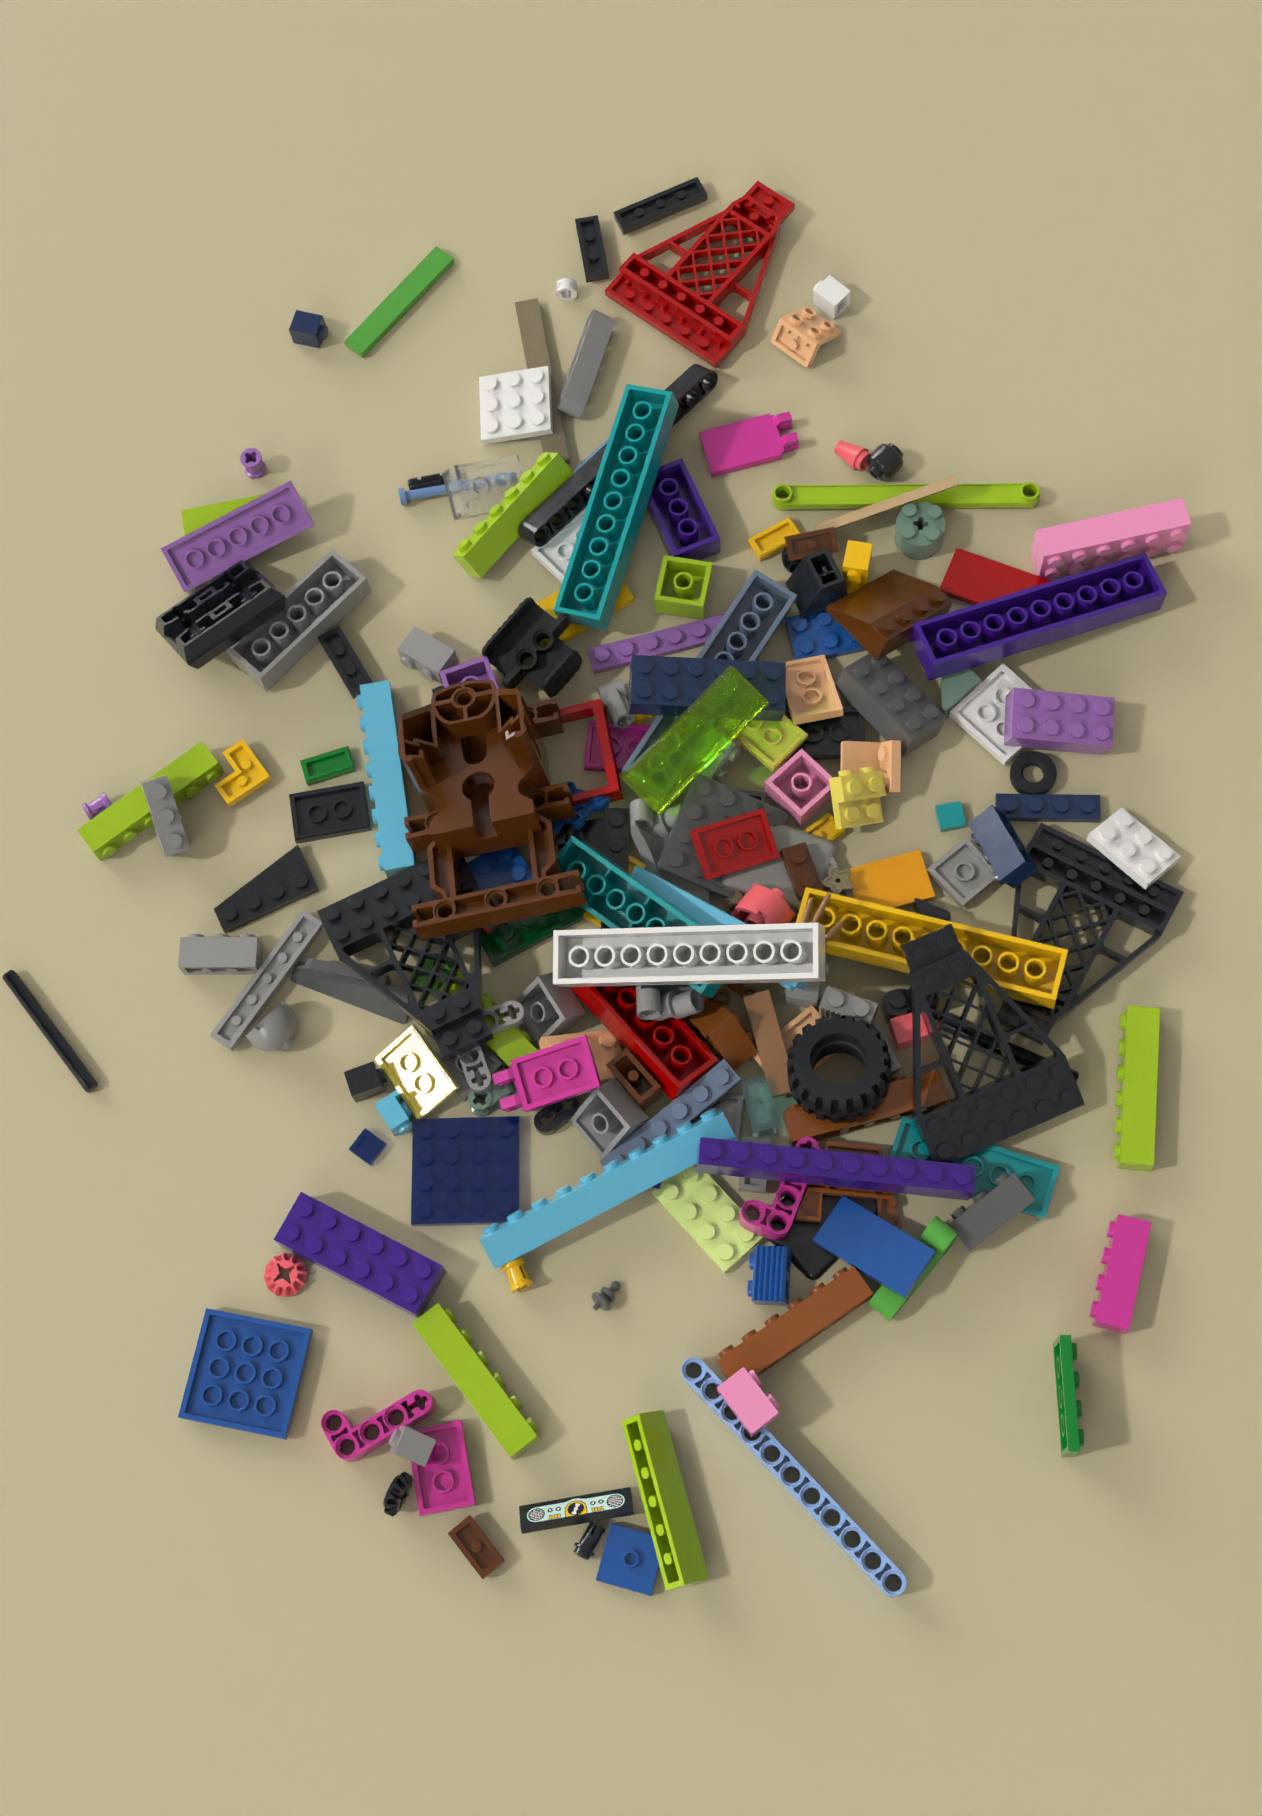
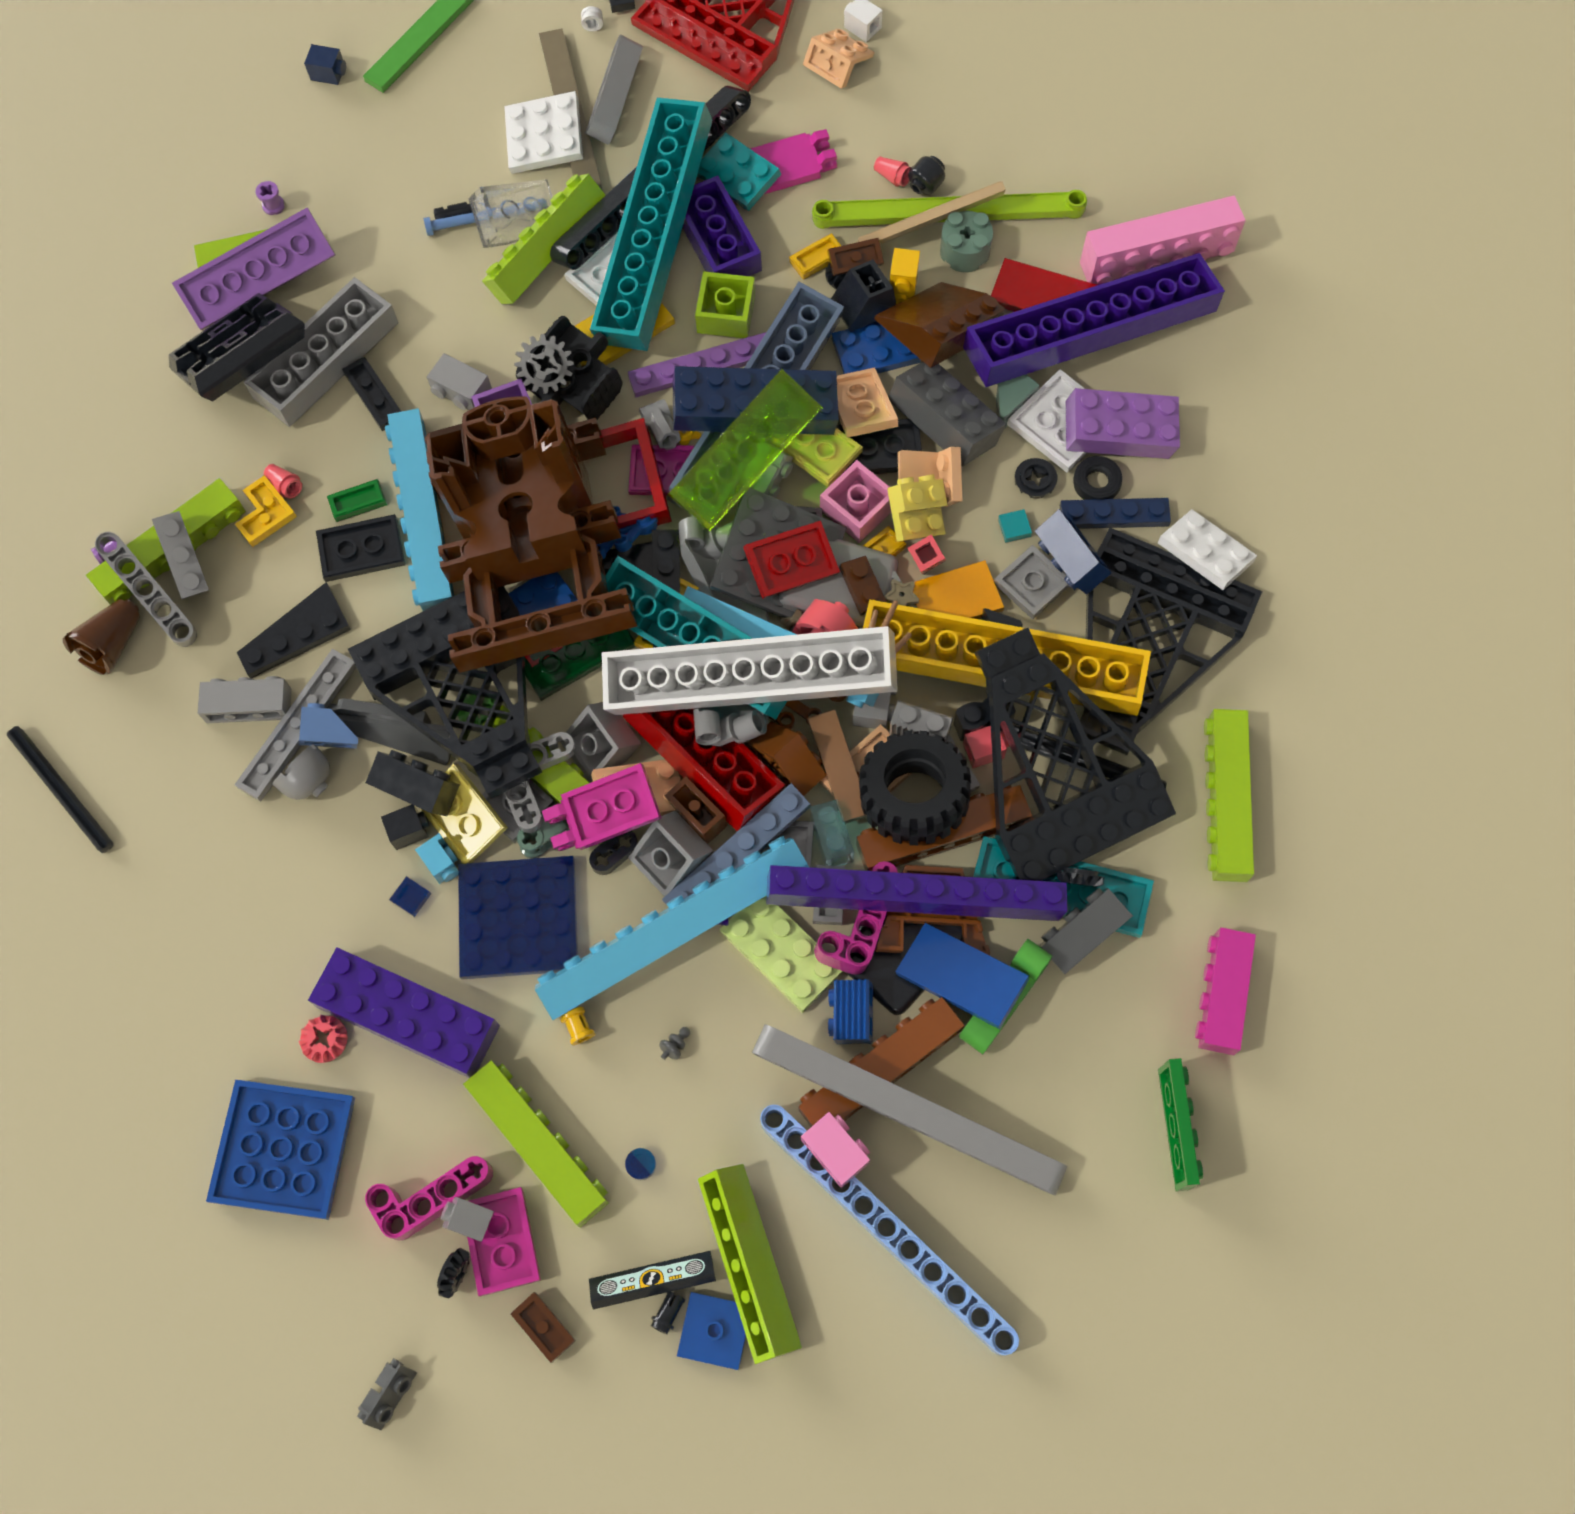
camera: 10 degrees left, 0 degrees up
(92, 888) = (103, 636): none -> reddish brown cone
(127, 835) = (136, 580): none -> light grey beam
(260, 745) = (285, 482): none -> coral cone
(293, 985) = (324, 728): none -> medium blue slope
(328, 1609) = (379, 1407): none -> dark grey hinge
(374, 1041) = (413, 782): none -> black brick
(504, 656) = (548, 351): none -> light grey gear
(570, 1405) = (640, 1164): none -> tile
(703, 450) = (740, 170): none -> teal plate
(818, 1369) = (909, 1109): none -> light grey beam
(863, 842) = (926, 554): none -> coral brick
(979, 761) = (1042, 470): none -> black gear
(989, 1160) = (1080, 877): none -> black gear

